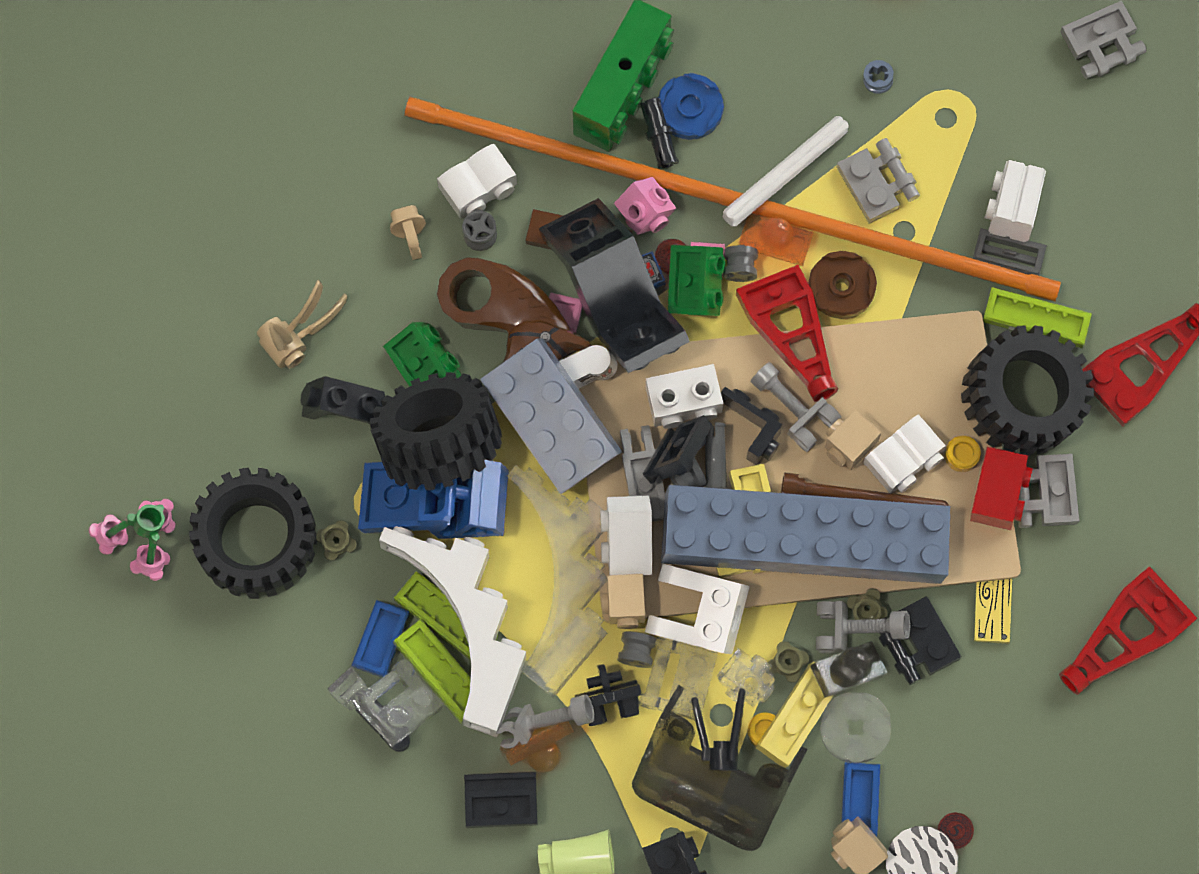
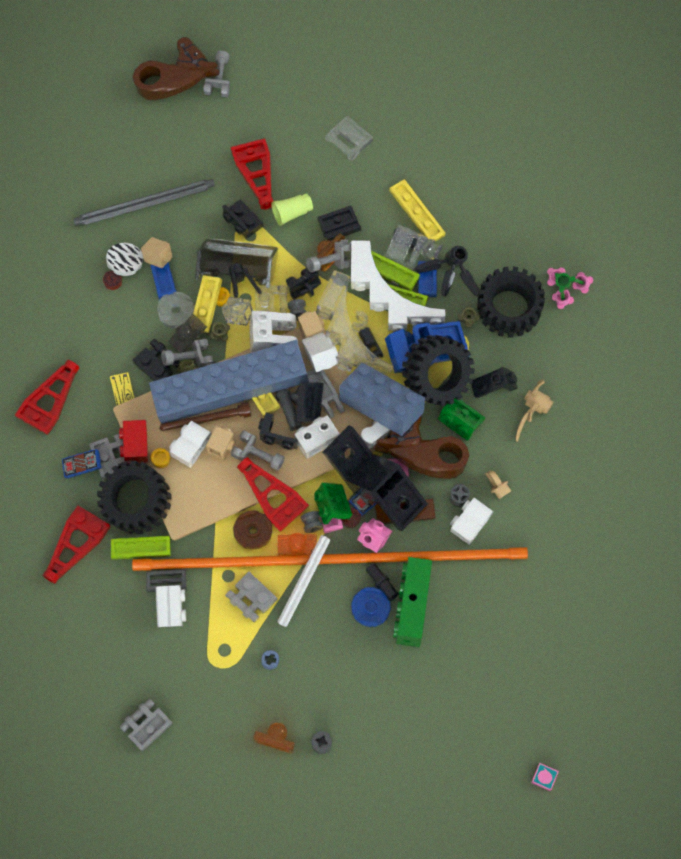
camera: 160 degrees right, 5 degrees down
(312, 646) = (454, 258): none -> black plant
(346, 780) = (416, 210): none -> light yellow tile
(530, 561) = (365, 333): none -> piece
(1100, 490) = (81, 463): none -> tile

